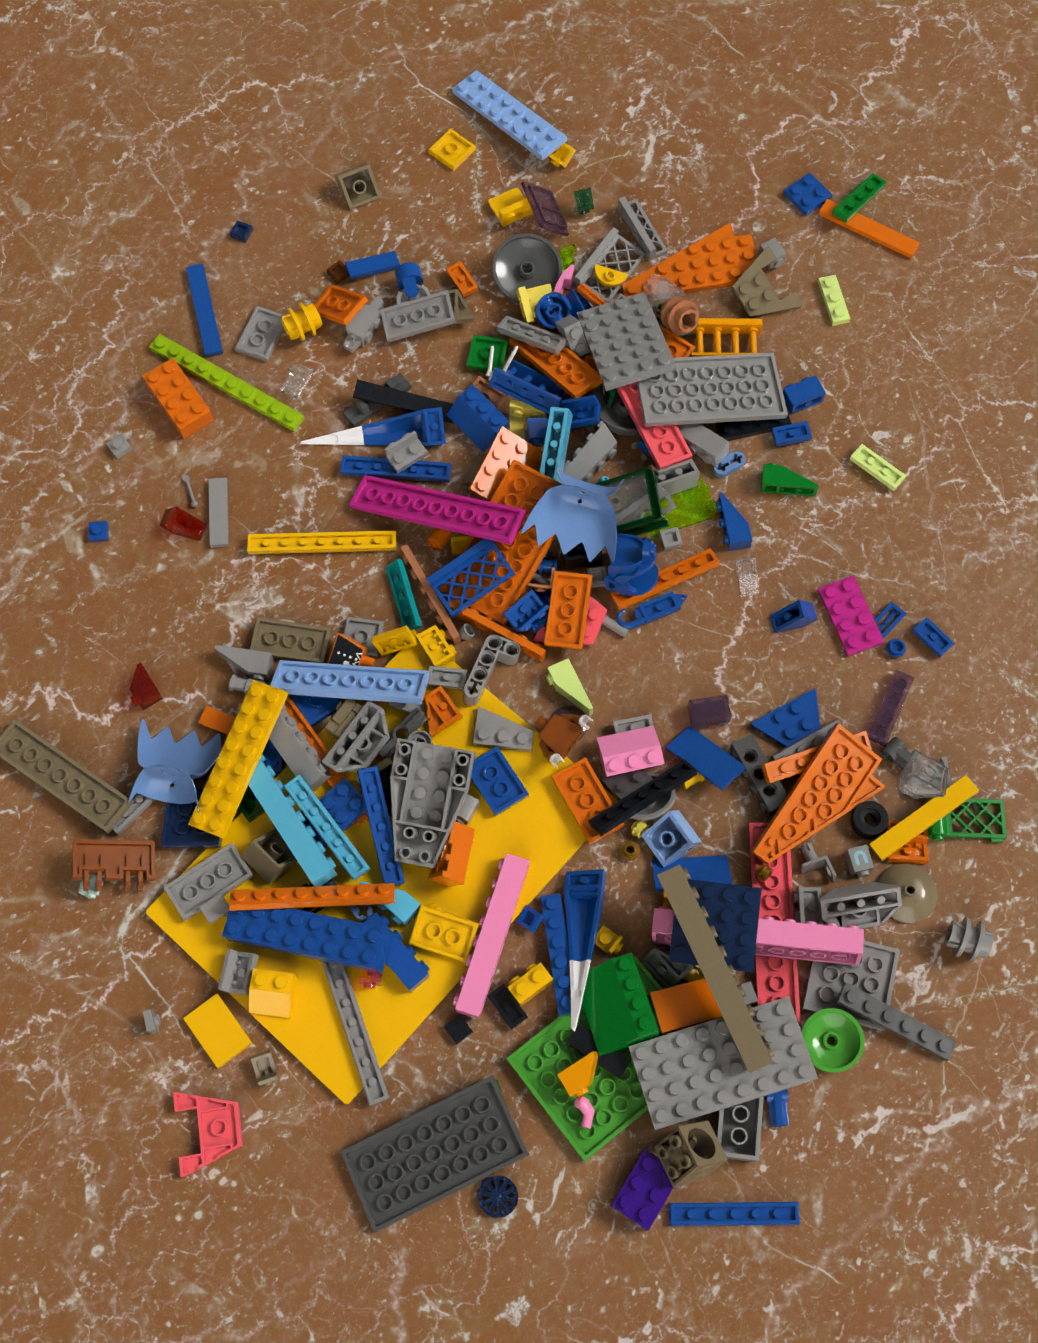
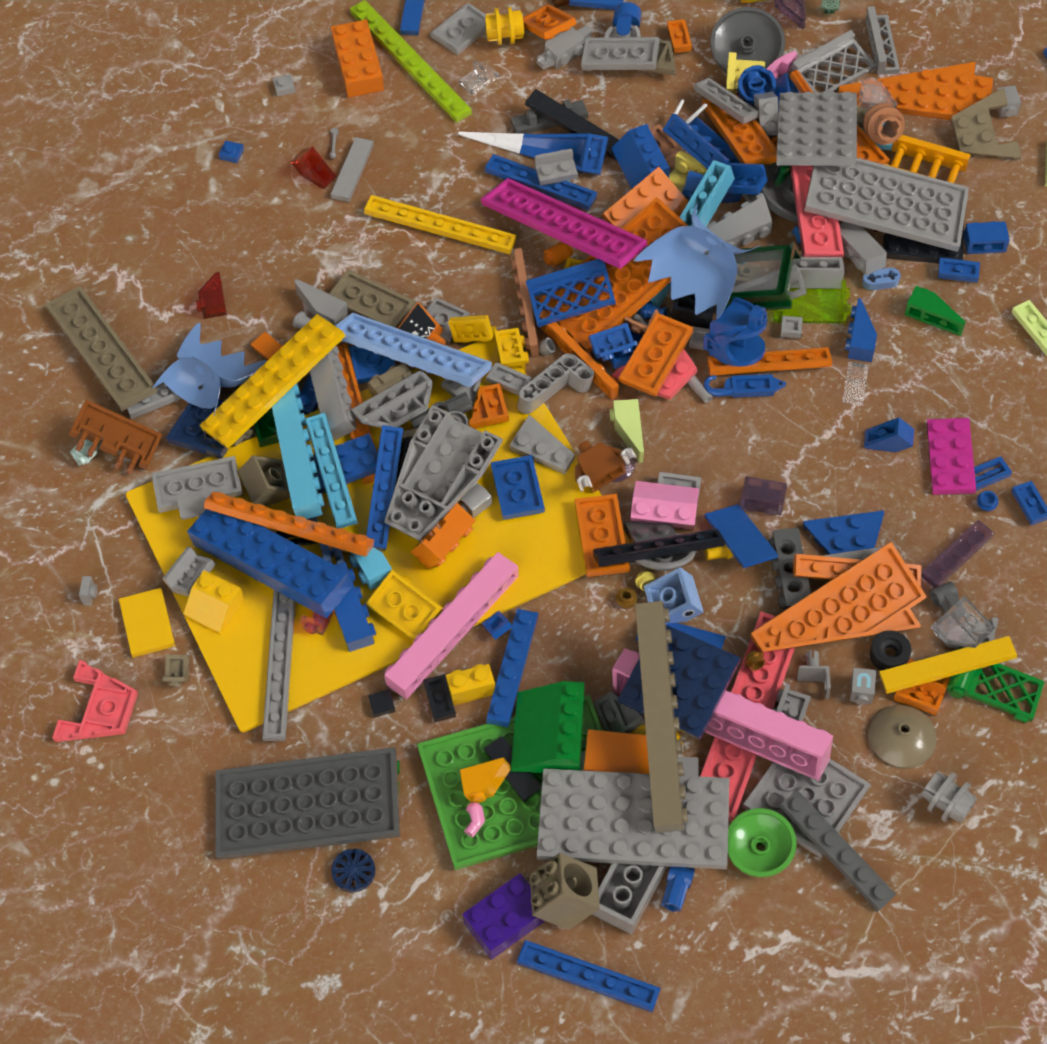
camera: 20 degrees right, 10 degrees down
(403, 595) = (499, 293): teal plate -> none
(480, 352) = (670, 100): green plate -> none
(566, 255) = (794, 43): clear neon green bracket -> none
(584, 904) = (556, 628): blue plate -> none
(608, 941) = (567, 671): yellow bracket -> none
(609, 277) = (828, 74): yellow plate -> none
(861, 904) = (853, 729): light grey wedge -> none

